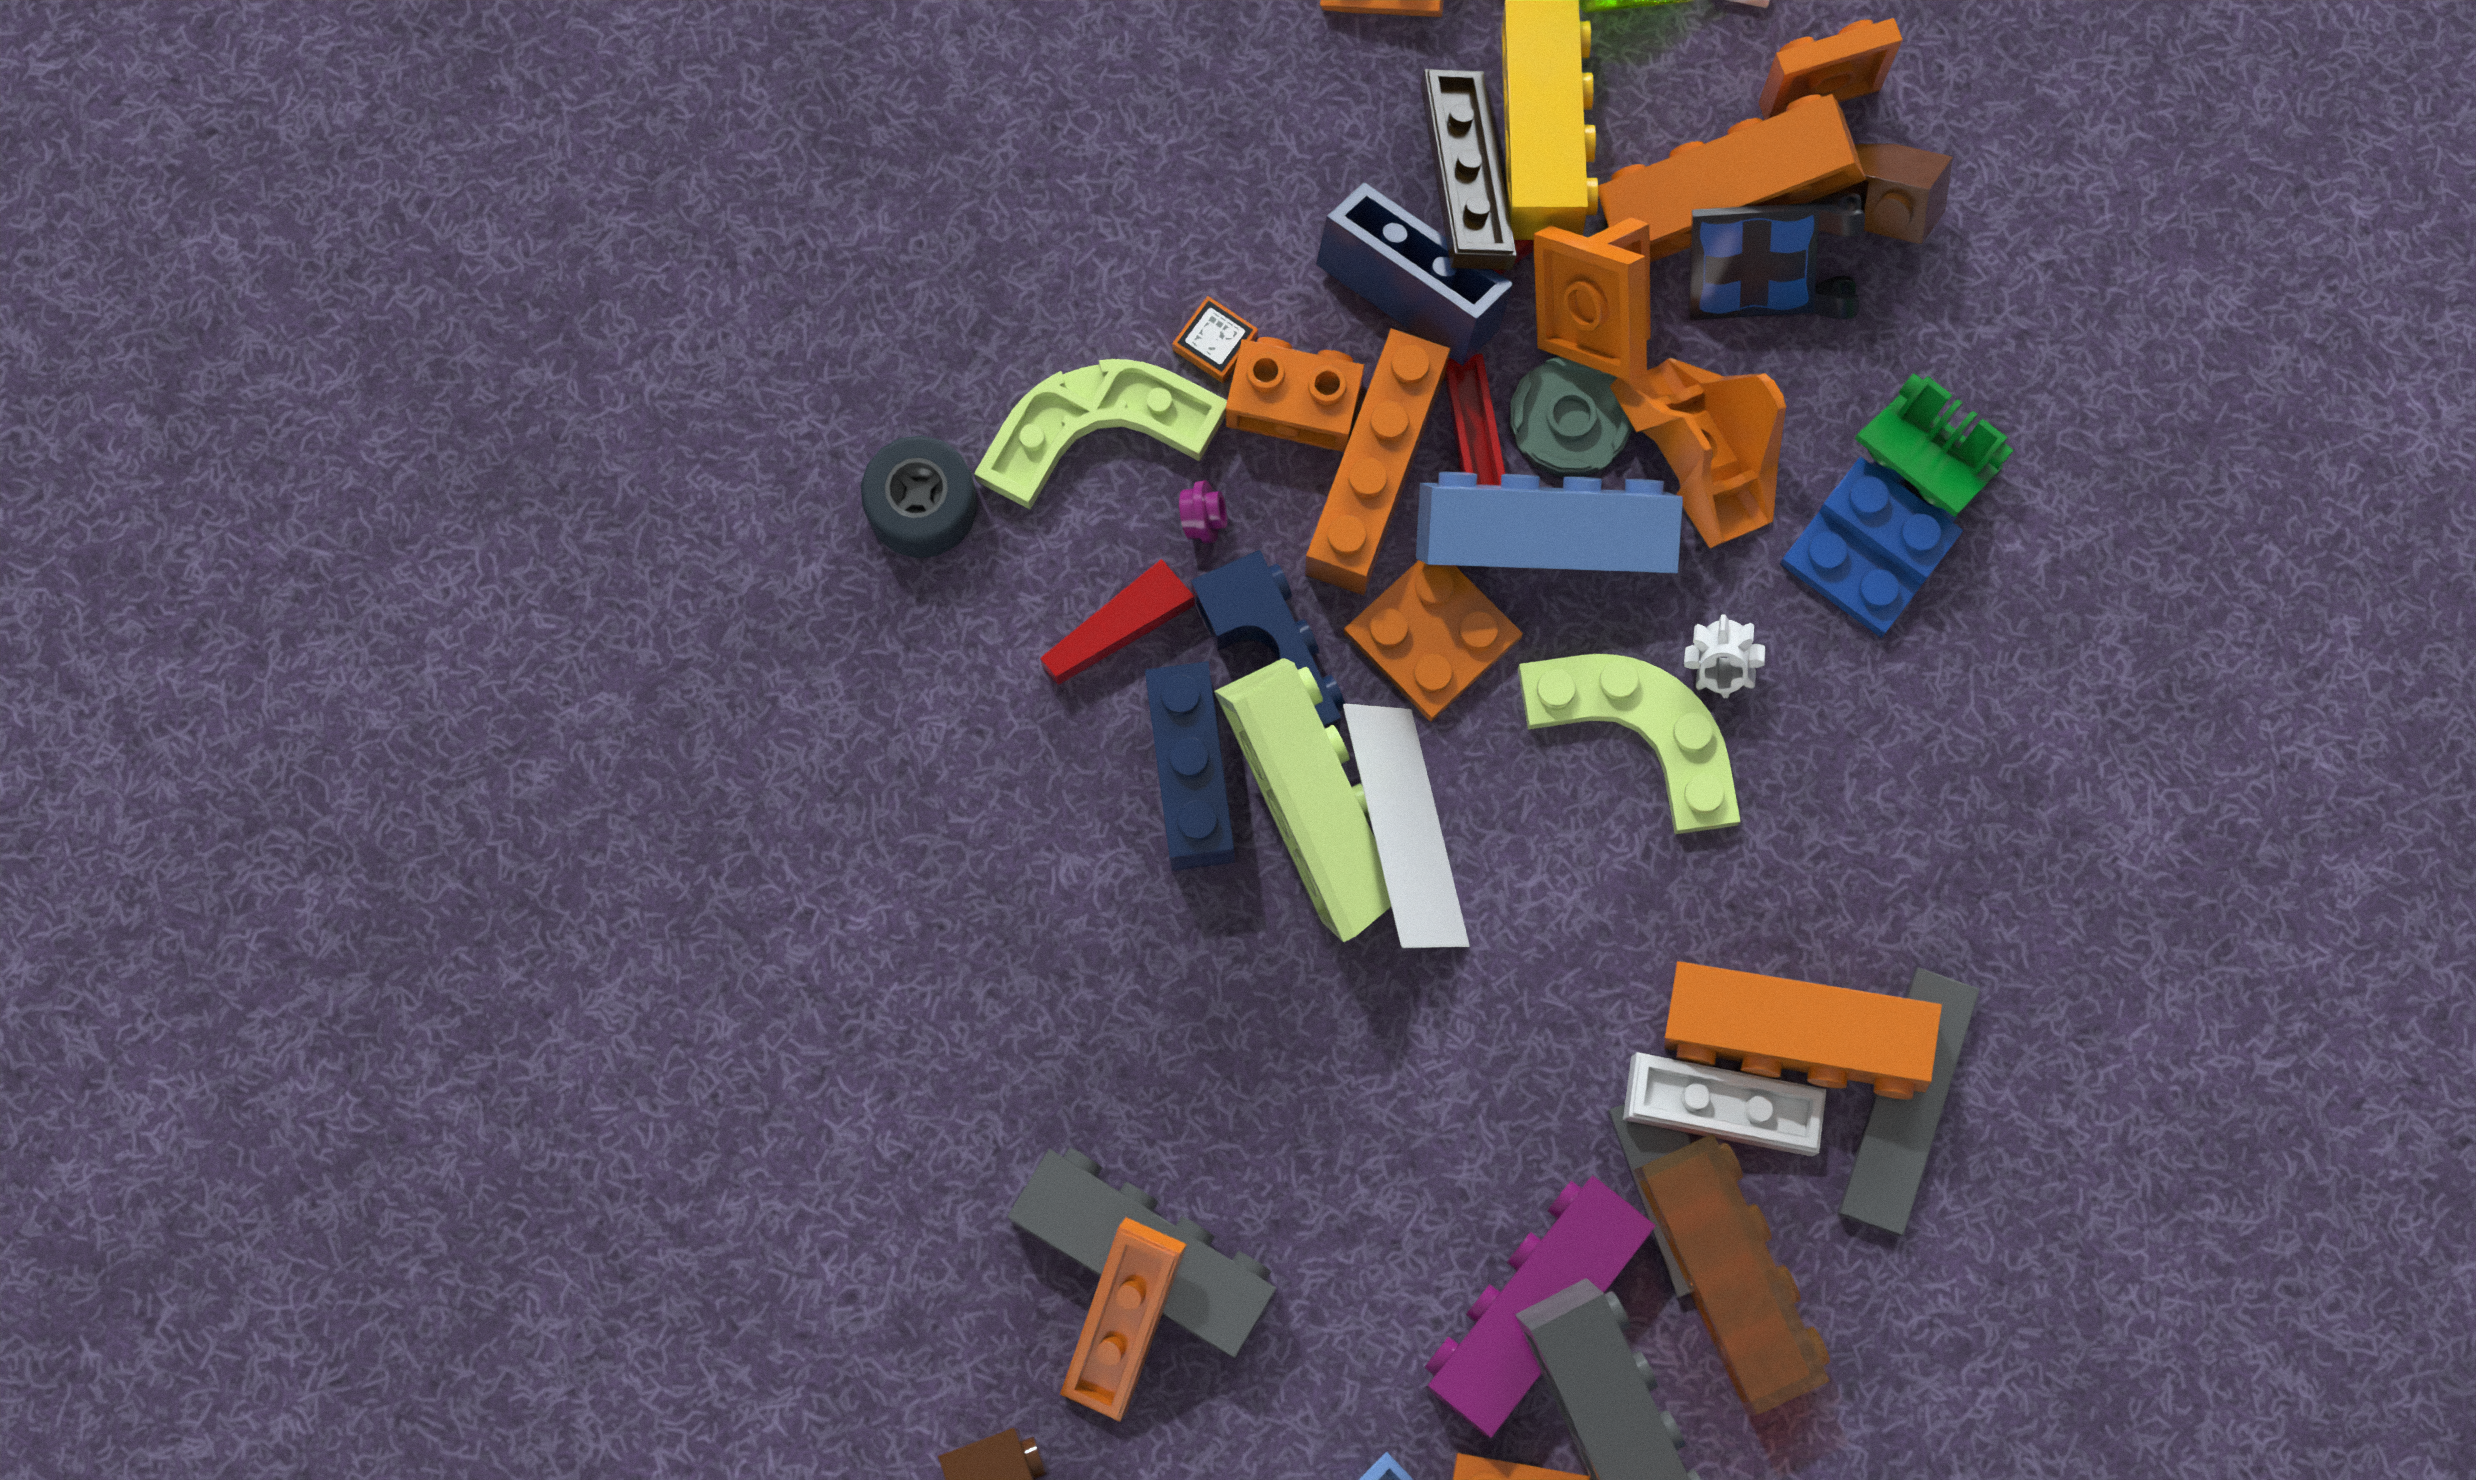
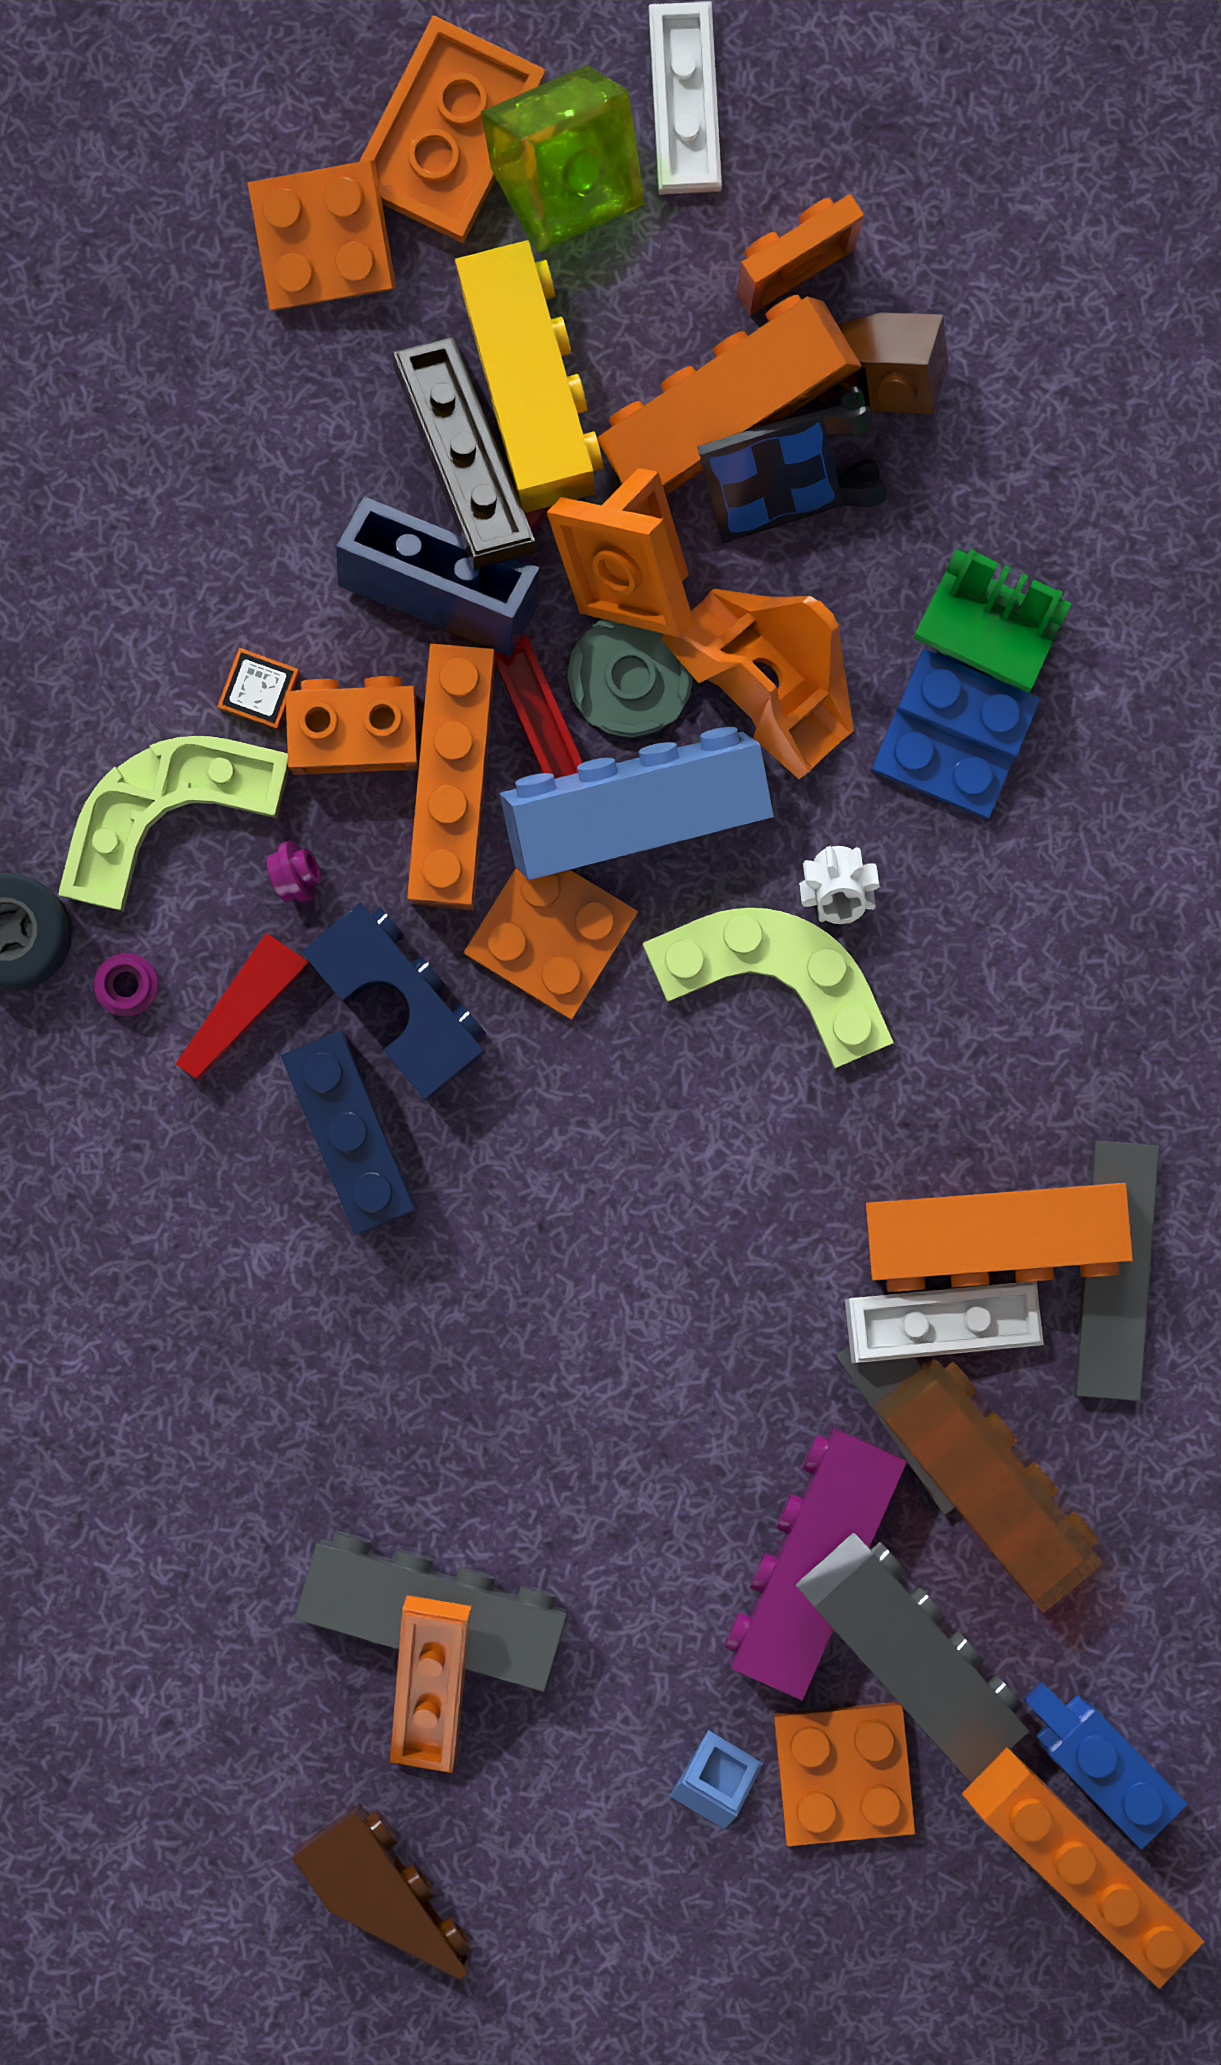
camera: 20 degrees left, 10 degrees up
(1013, 557) = (106, 979): none -> magenta plate
(1309, 793) = (475, 1141): yellowish green slope -> none
(1406, 827) = (573, 1138): white sticker -> none

